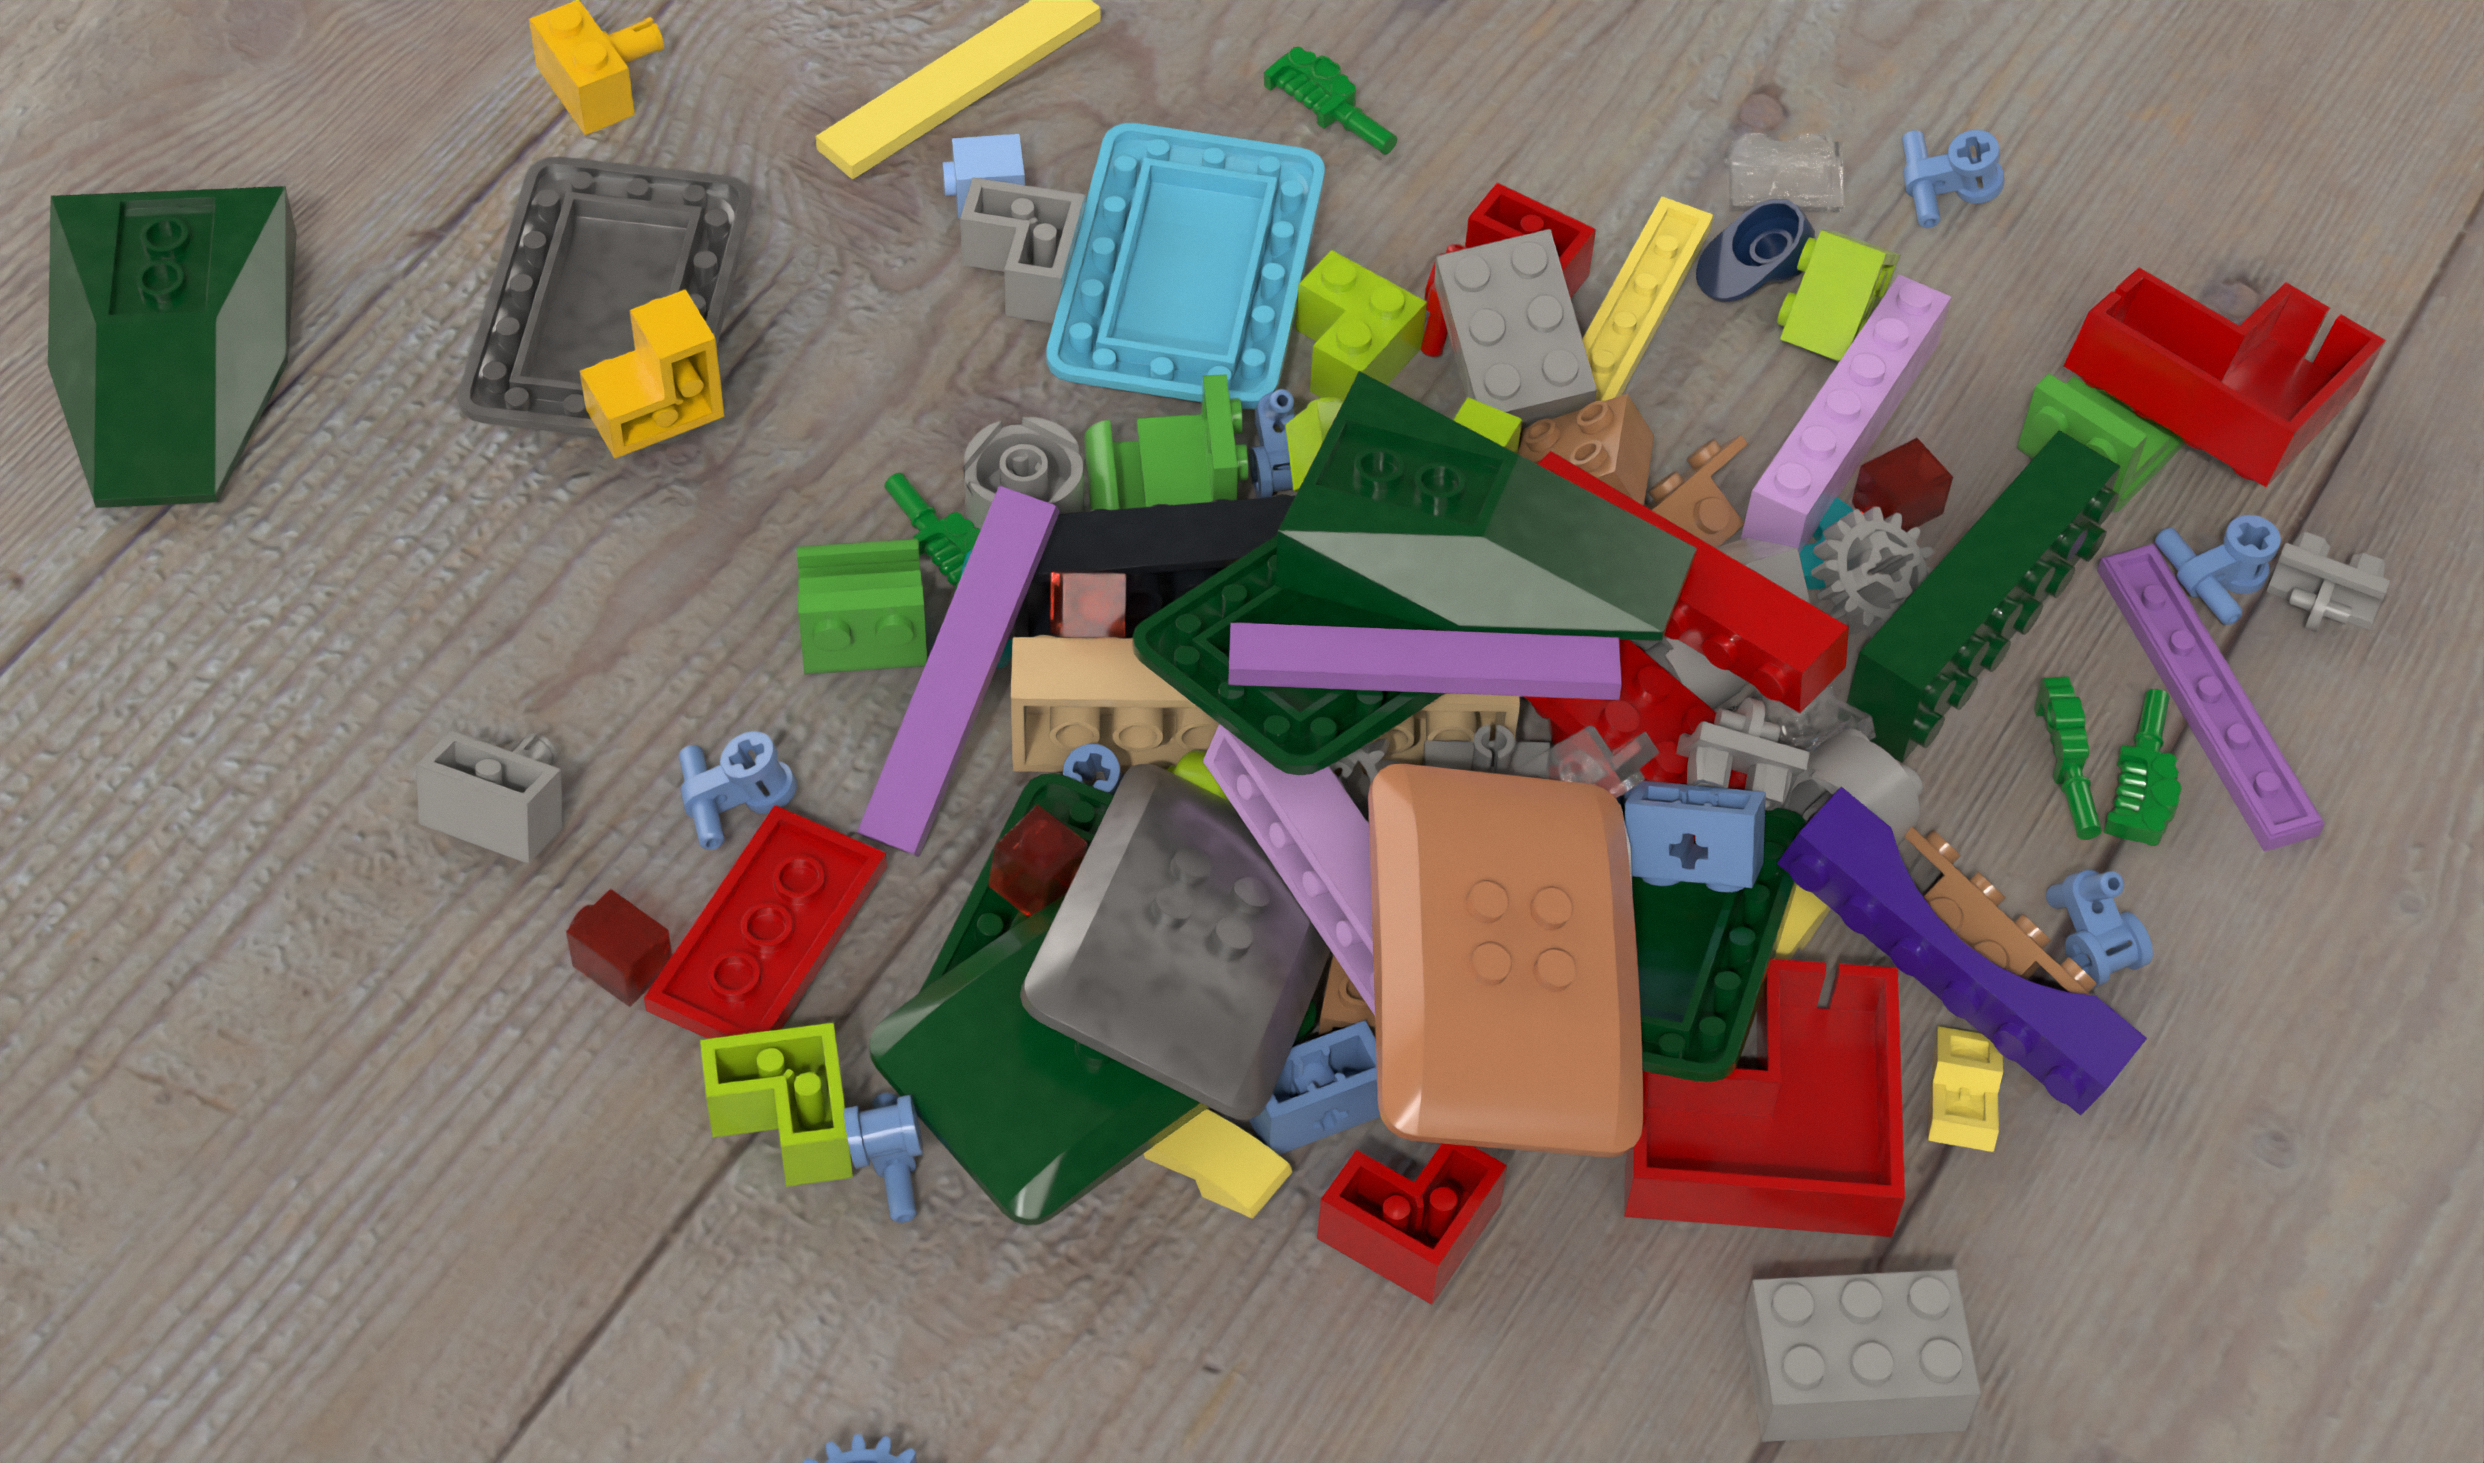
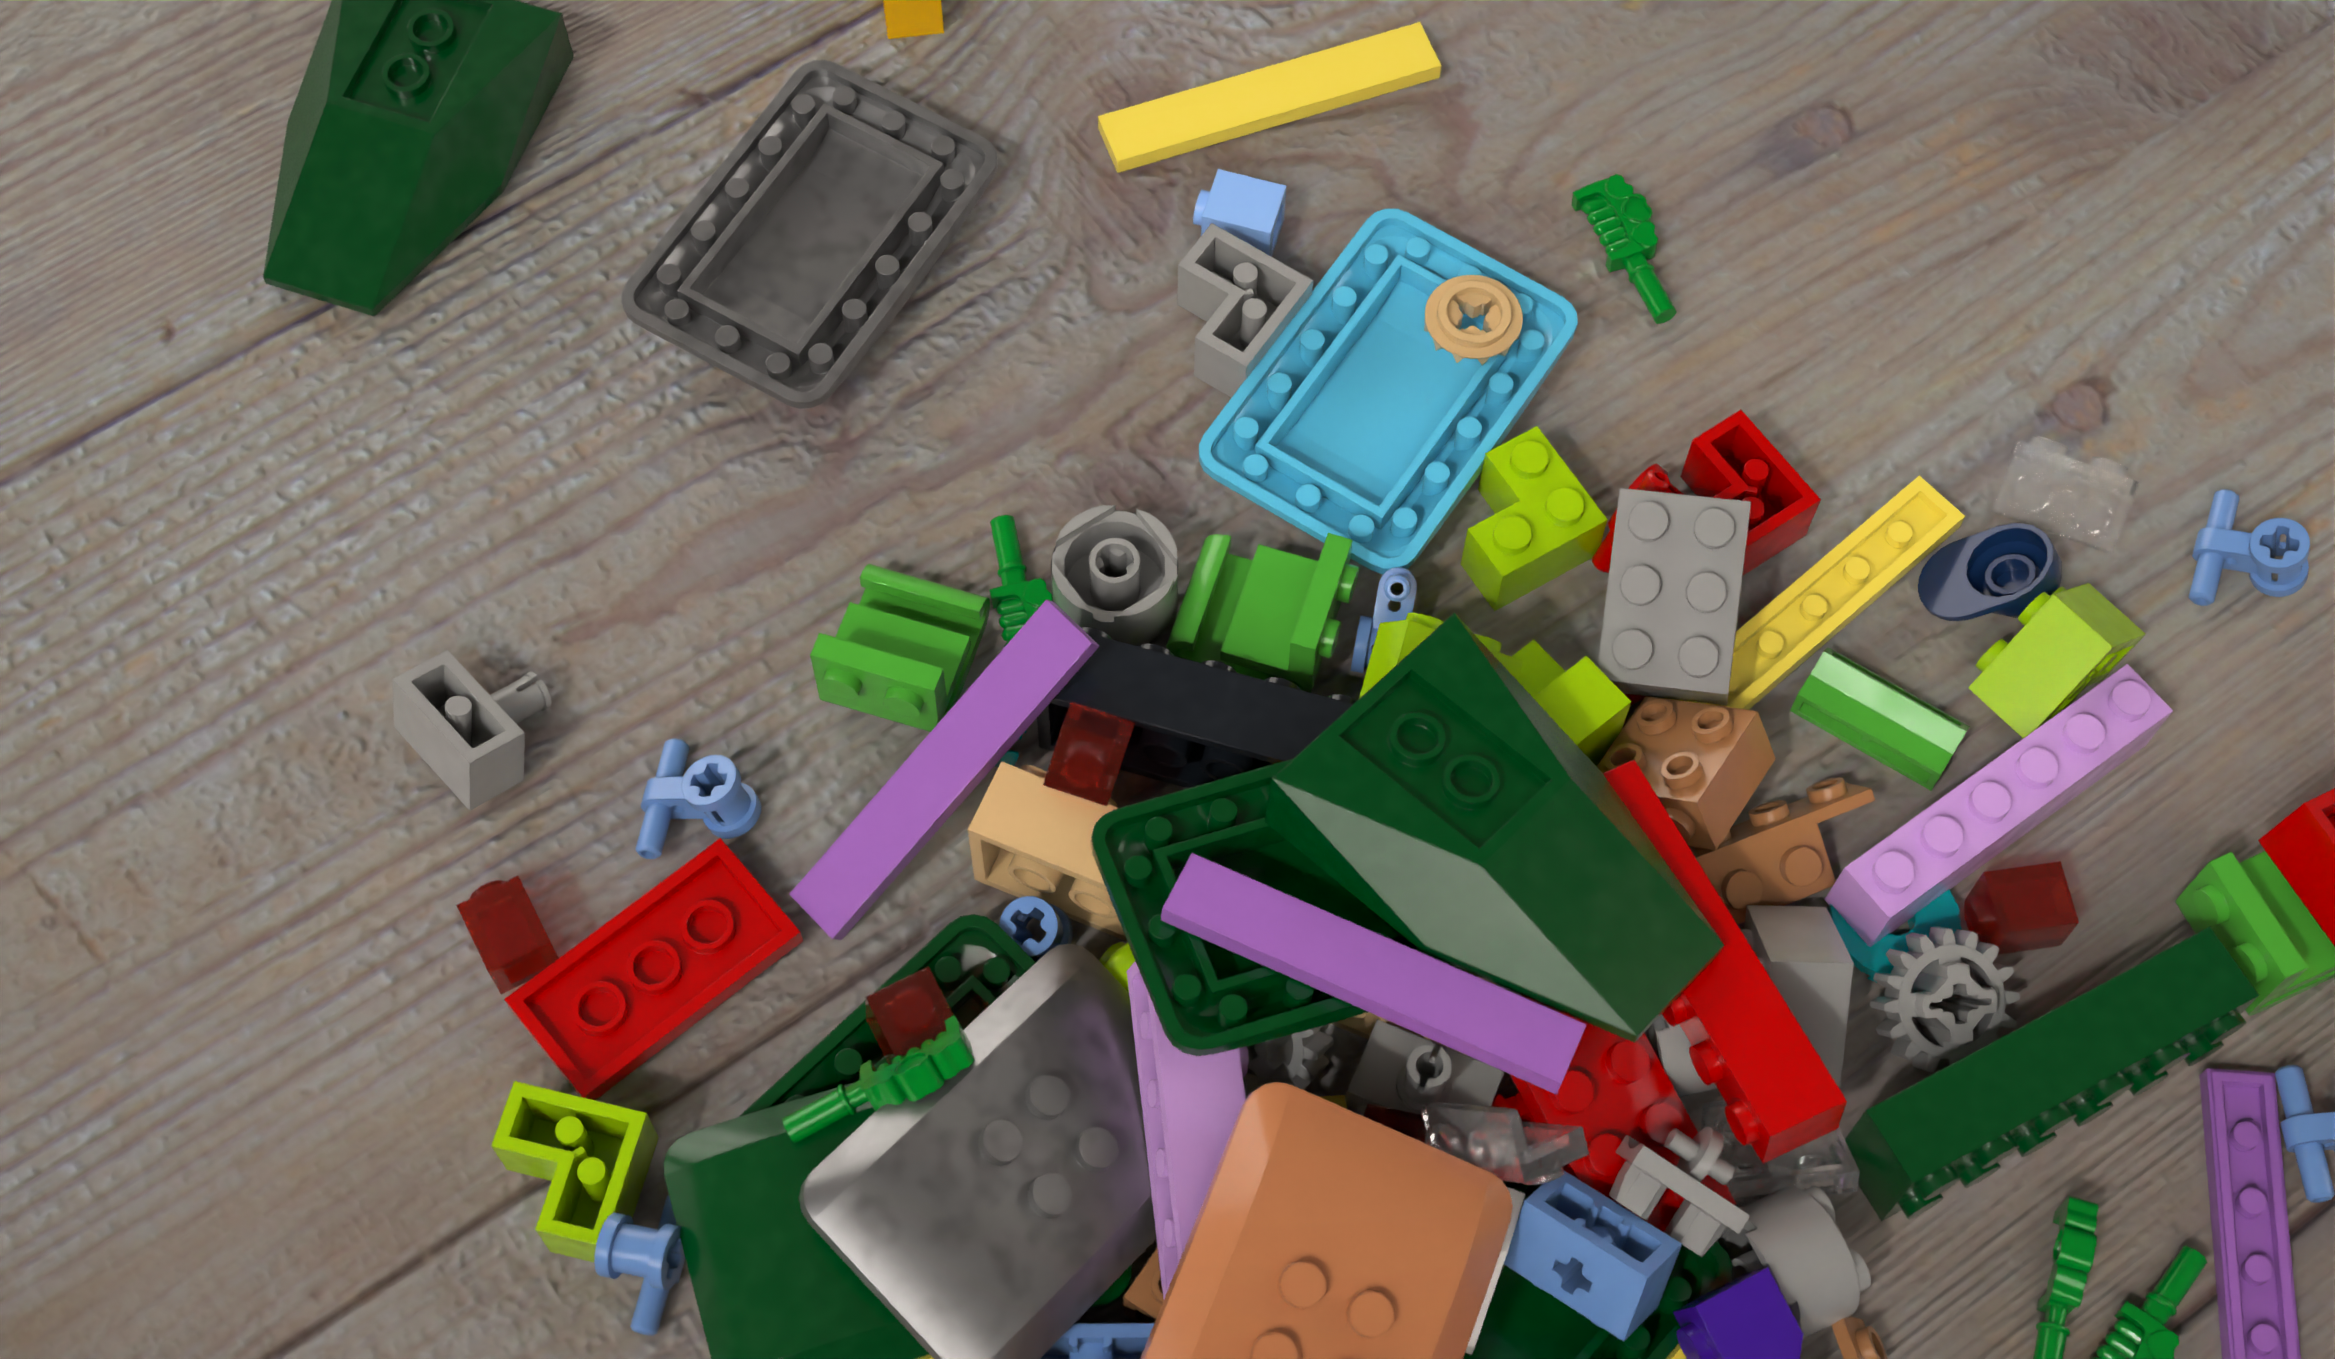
camera: 25 degrees right, 10 degrees up
(661, 385) = (797, 351): yellow brick -> none
(1069, 883) = (909, 1076): none -> green piece
(1227, 168) = (1474, 297): none -> tan gear
(1718, 391) = (1879, 718): none -> bright green piece

